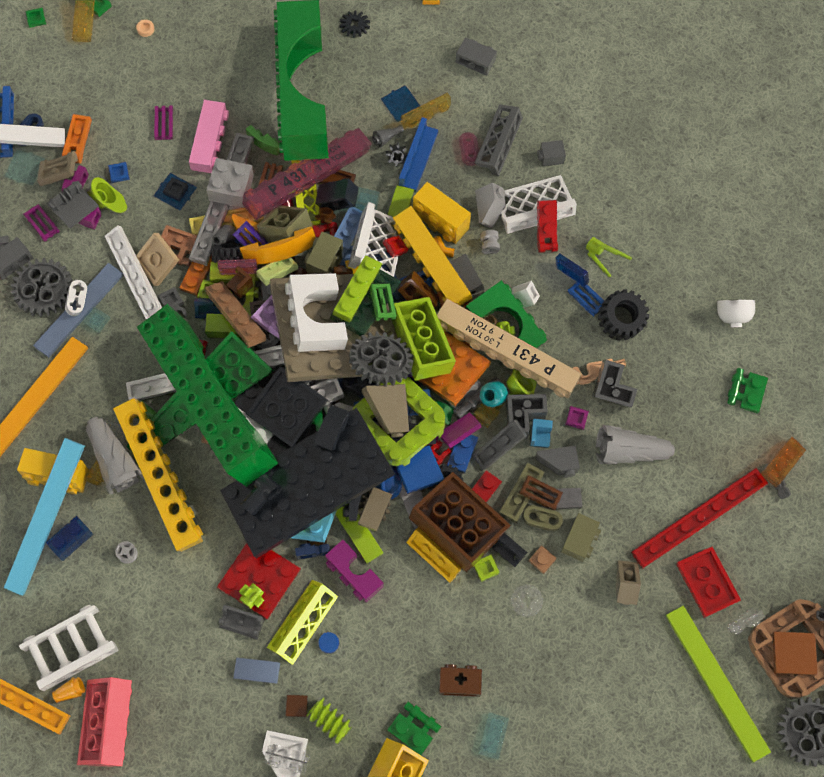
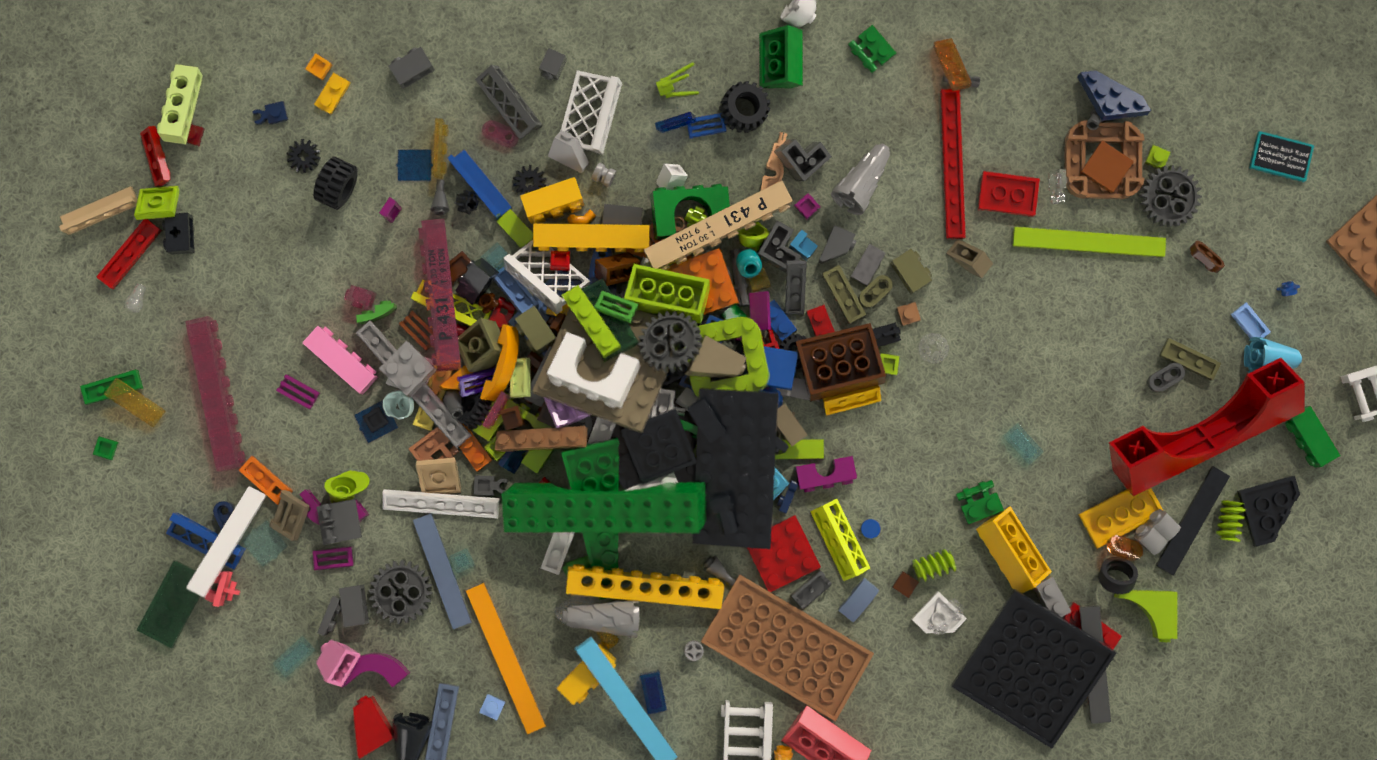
camera: 60 degrees left, 15 degrees up
(80, 298) = (435, 564): white beam -> none
(118, 172) = (324, 461): blue tile -> none
(124, 65) = (214, 394): none -> clear pink brick
(145, 28) = (182, 352): light nougat tile -> none
(176, 634) = (787, 647): none -> medium nougat plate
(197, 191) = (398, 397): none -> light aqua hair
(211, 527) = (714, 567): none -> dark grey cone
(251, 595) = (798, 569): lime gear -> none
(268, 122) = (360, 297): none -> clear pink brick
(301, 119) = (394, 271): green arch -> none
(346, 51) = (335, 183): none -> black tyre
(352, 101) = (390, 210): none -> magenta tile
(417, 16) = (332, 93): none -> yellow plate
(451, 188) = (529, 174): none -> black gear
(470, 687) = (976, 439): reddish brown brick -> none
(537, 499) = (842, 287): reddish brown tile -> none
(547, 225) = (621, 116): red plate -> none
(686, 321) = (781, 57): none -> green slope

